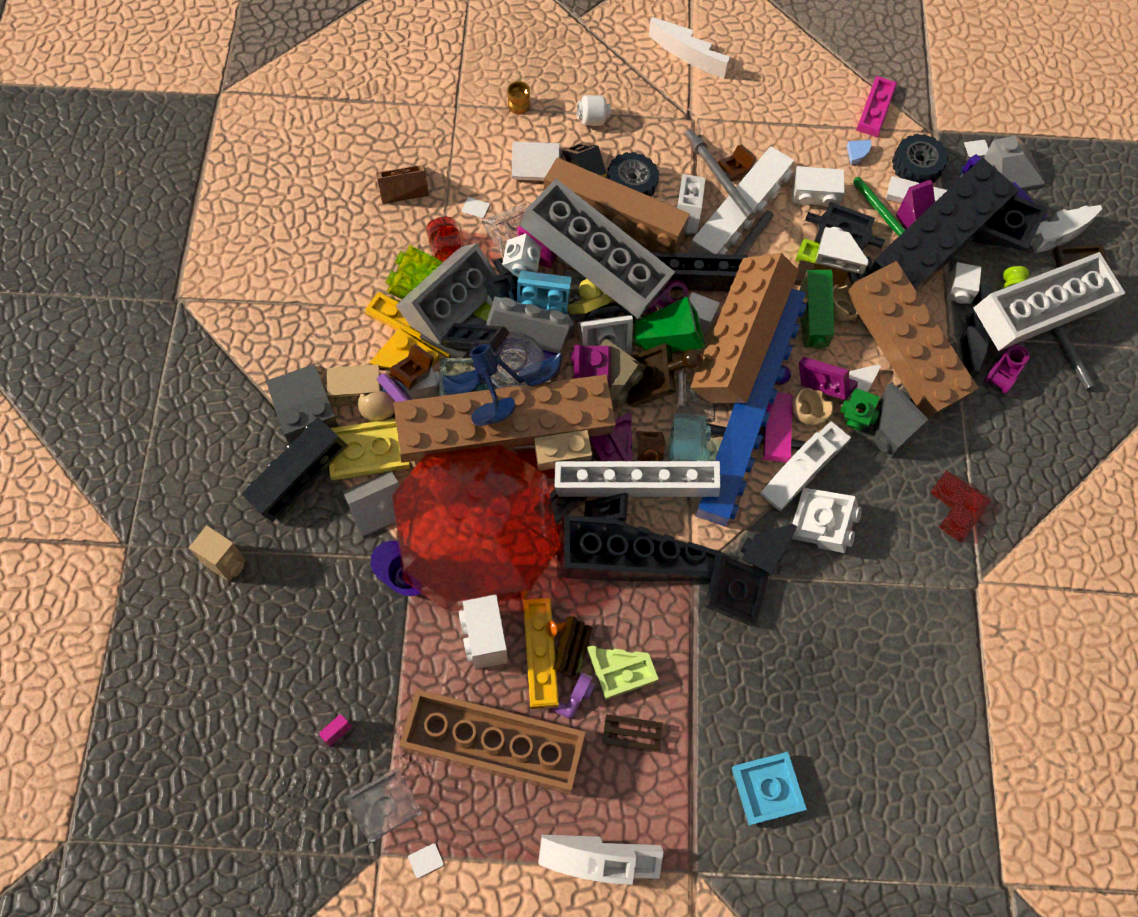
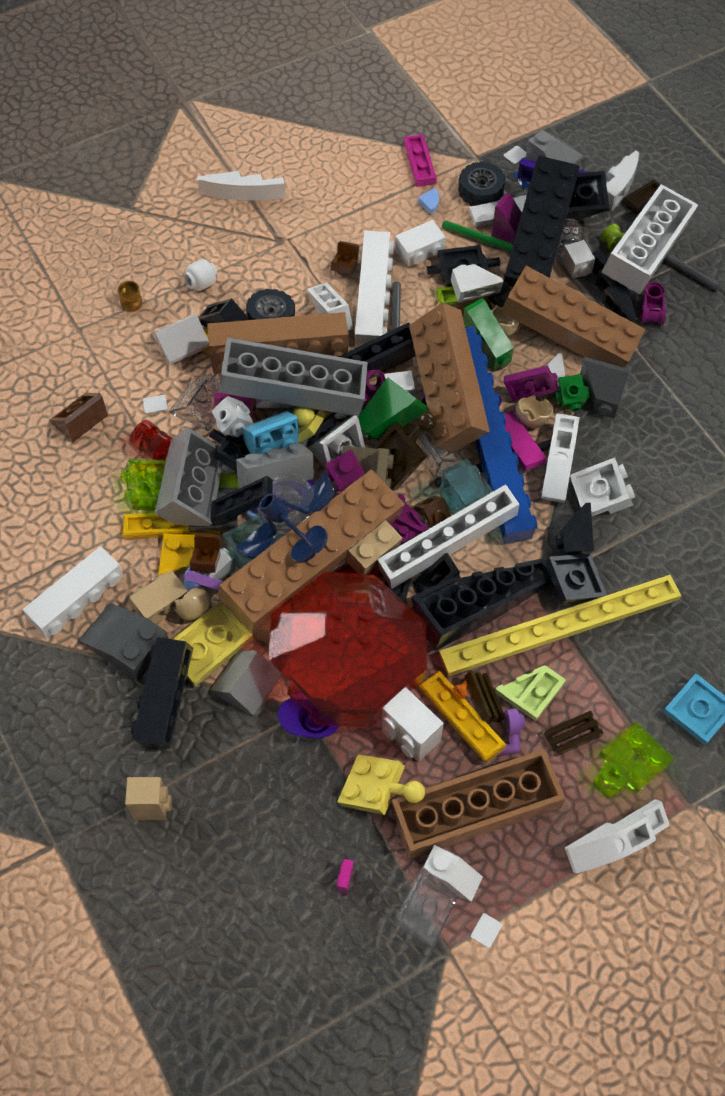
camera: 30 degrees left, 5 degrees down
(288, 336) = (73, 592): none -> white brick
(415, 665) = (374, 783): none -> light yellow plate
(427, 790) = (453, 873): none -> white slope
(653, 799) = (623, 770): none -> clear neon green plate
(694, 625) = (558, 625): none -> light yellow plate
(700, 147) = (307, 260): flat silver bar -> none
(965, 505) = (690, 419): clear red plate -> none
(974, 253) = (571, 233): none -> clear head

